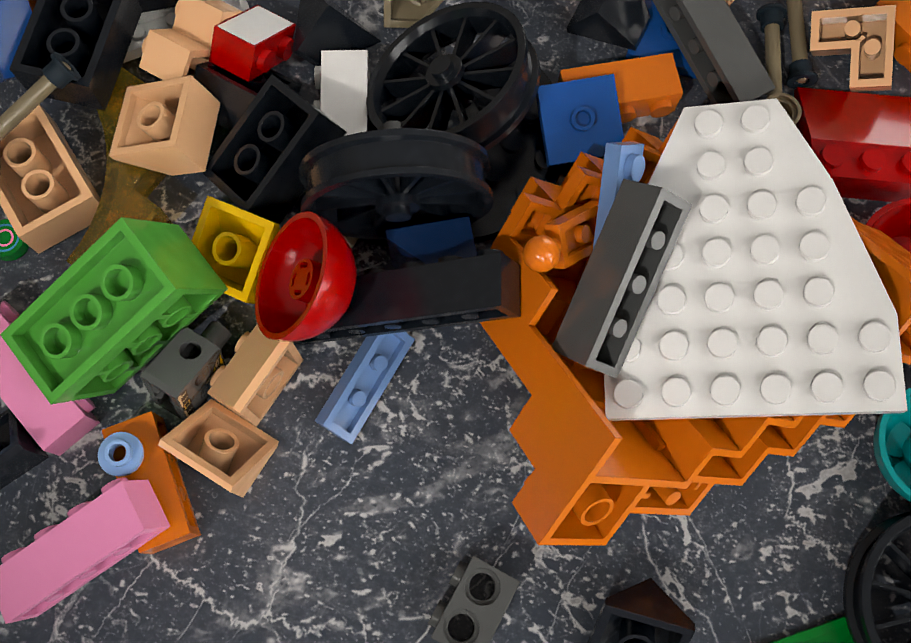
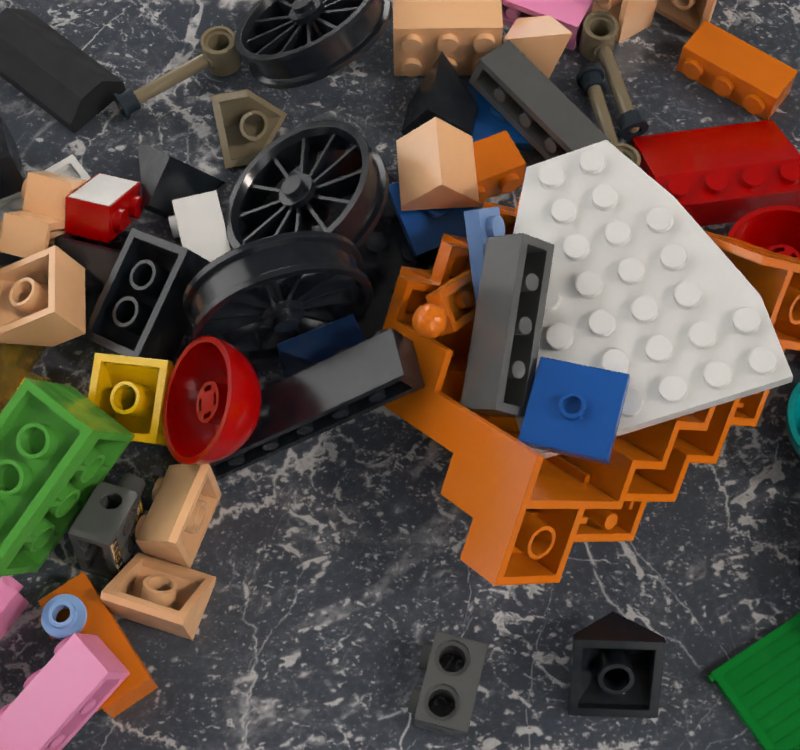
camera: 10 degrees left, 10 degrees down
(363, 384) = (287, 499): medium blue plate -> none
(591, 80) = (436, 168): none -> light nougat slope
(667, 385) = (574, 410): none -> blue plate
(864, 34) = (676, 76): light nougat brick -> none

